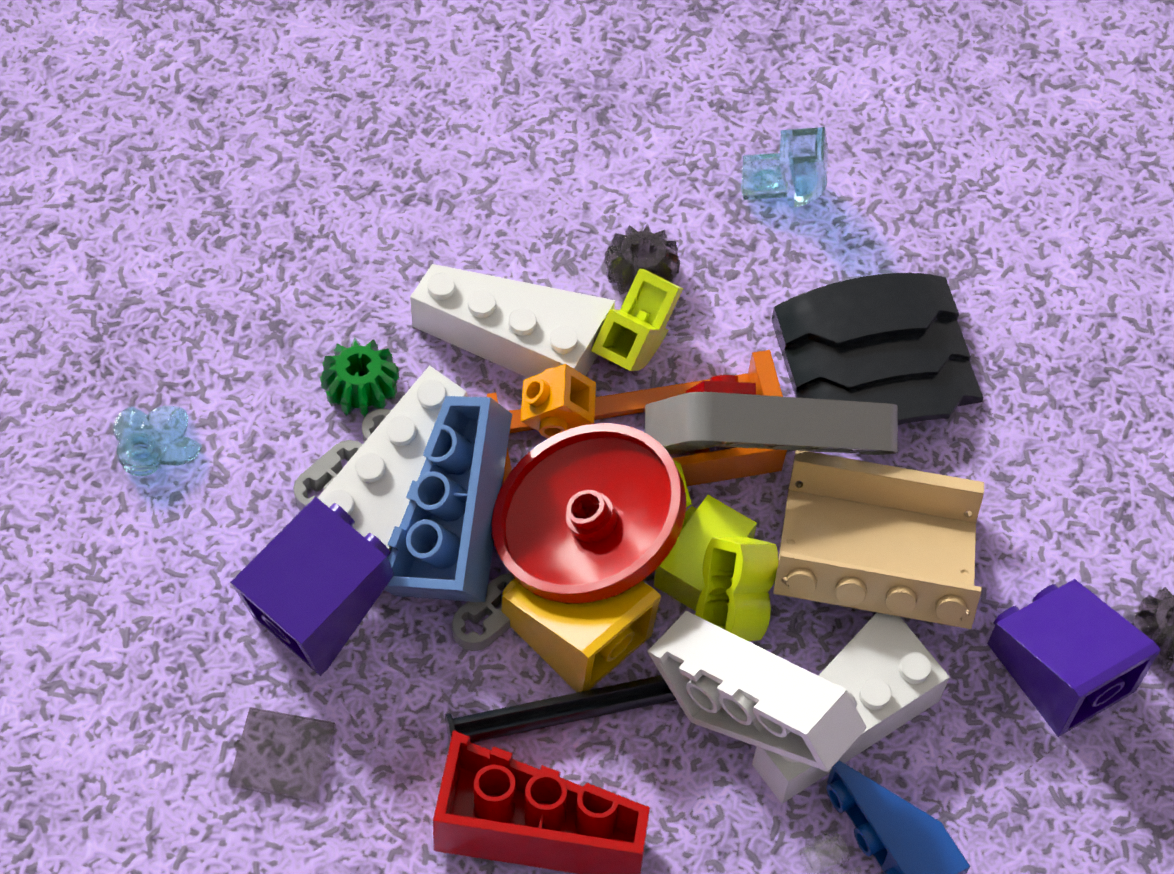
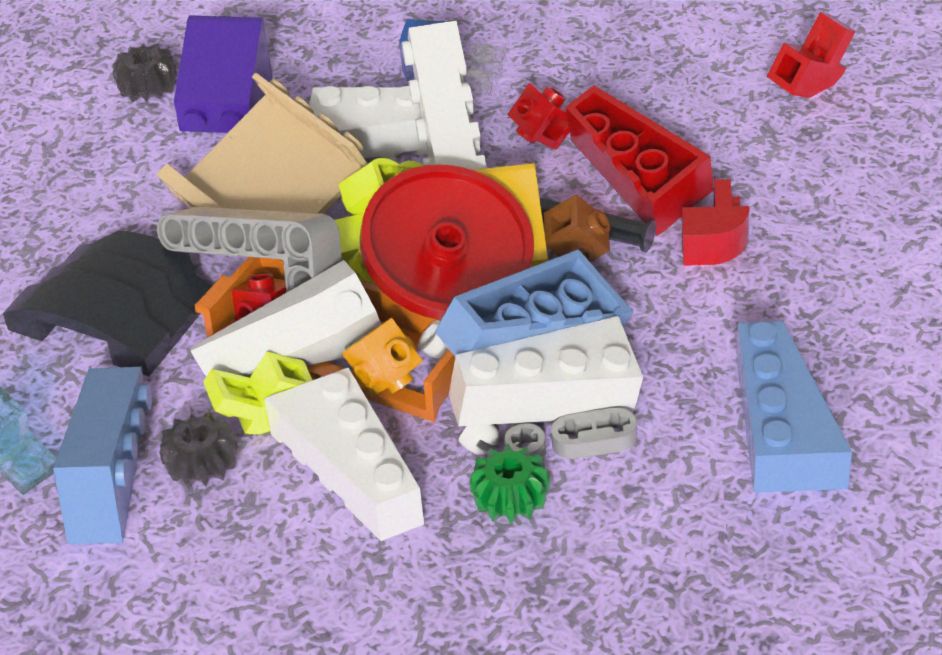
camera: 135 degrees left, 15 degrees down
(153, 439) = (715, 540): clear light blue plate -> none
(165, 574) = (786, 419): none -> medium blue wedge
(282, 754) = (774, 289): clear smoke piece -> none
(315, 582) = (681, 317): dark purple slope -> none
(377, 774) = (715, 232): none -> red brick
(511, 666) = (577, 226): none -> dark orange brick
(640, 379) = (306, 324): none -> white wedge
(689, 821) = (535, 116): none -> red brick
(712, 208) = (101, 454): none -> medium blue wedge

